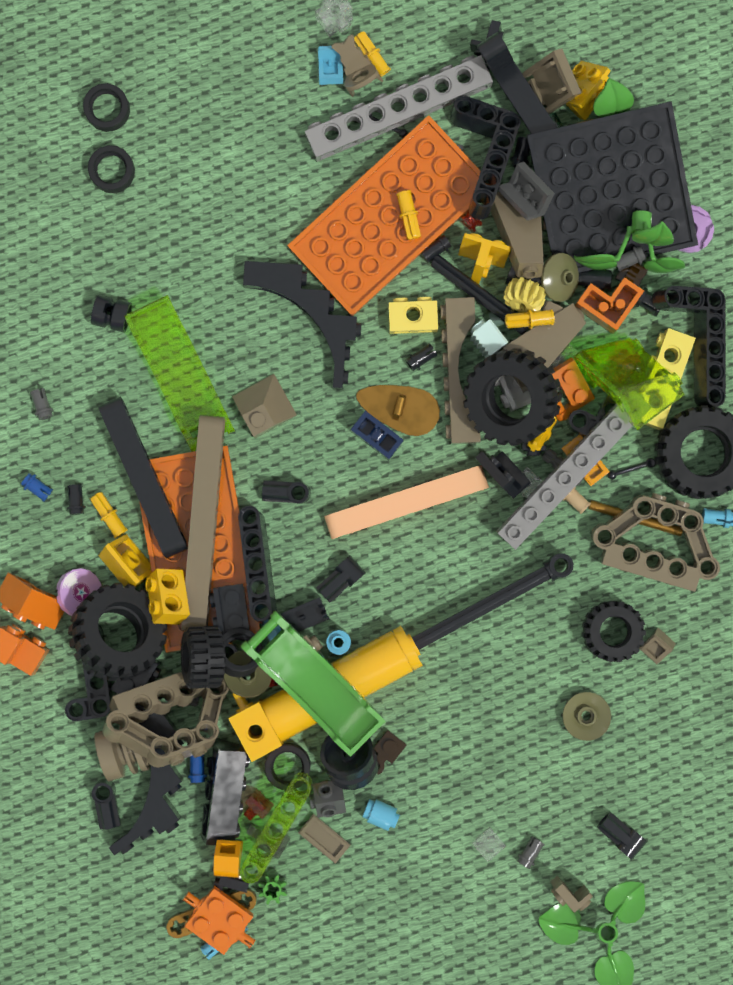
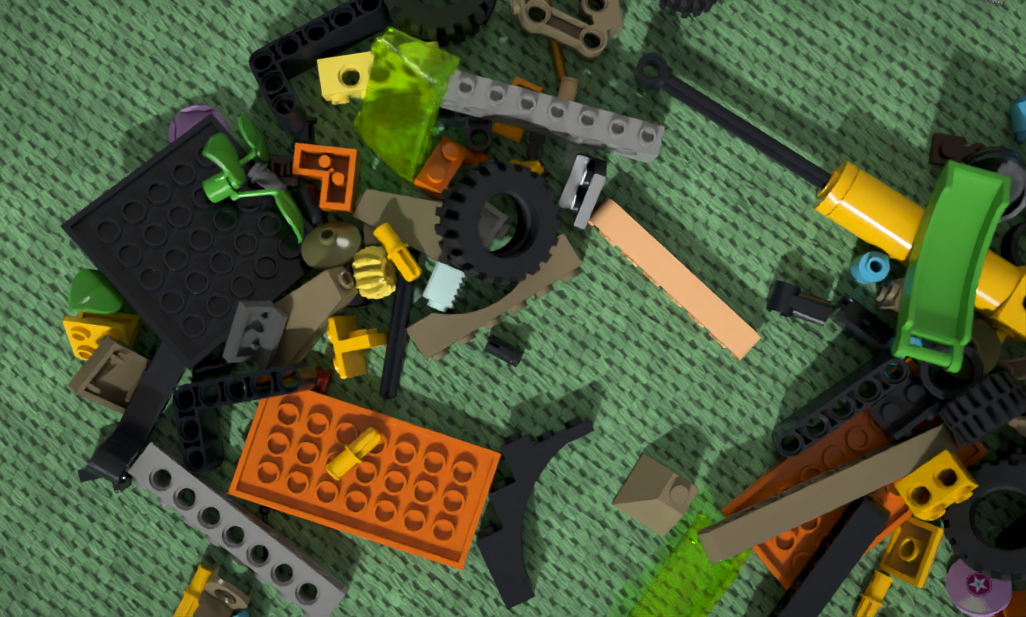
camera: 125 degrees left, 0 degrees up
(283, 492) = (738, 419): black piece -> none
(377, 435) = (620, 351): dark blue brick -> none
(401, 324) = (463, 367): light yellow brick -> none
(401, 407) = (571, 342): pearl gold shield -> none
(436, 248) = (373, 401): black pin -> none
(650, 462) = (480, 38): black hinge -> none

